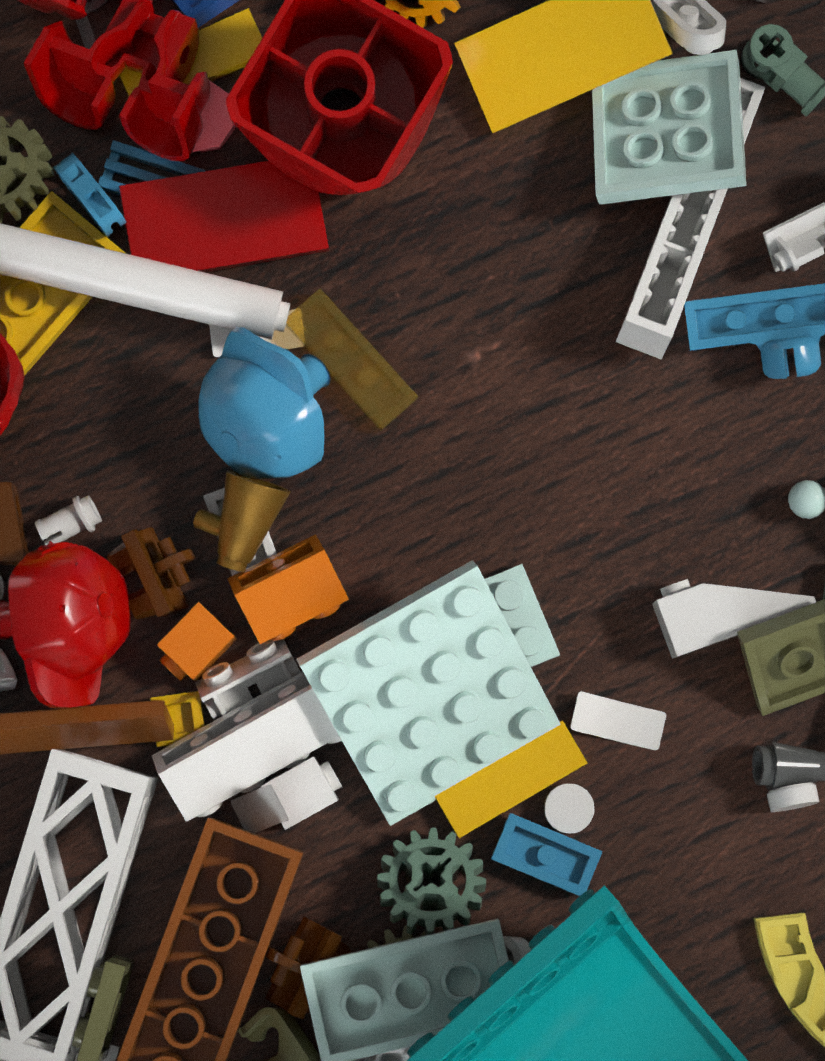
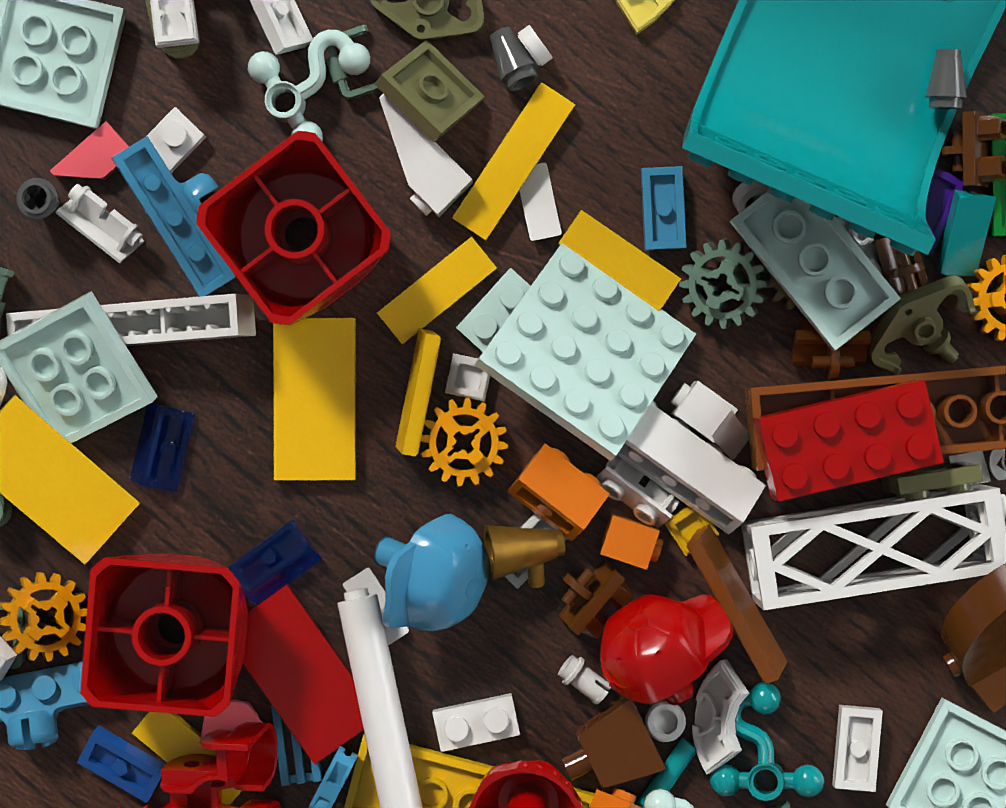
camera: 110 degrees left, 5 degrees up
(78, 382) = (476, 722): none -> white plate
(194, 931) = (848, 440): none -> red brick
(351, 359) = (362, 528): clear yellow tile -> none
(358, 247) = (275, 562): none -> clear blue slope
(415, 507) = (476, 456): none -> light orange gear
(459, 547) = (466, 378): none -> white tile
(470, 488) = (418, 392): none -> yellow tile
(516, 373) = (315, 399): none -> yellow tile
(541, 185) = (162, 447): none -> clear blue slope
(569, 808) = (620, 208): white tile -> none
(572, 562) = (437, 290): none -> yellow tile
(675, 714) = (513, 161): none -> yellow tile
(748, 396) = (251, 219): none -> red piece

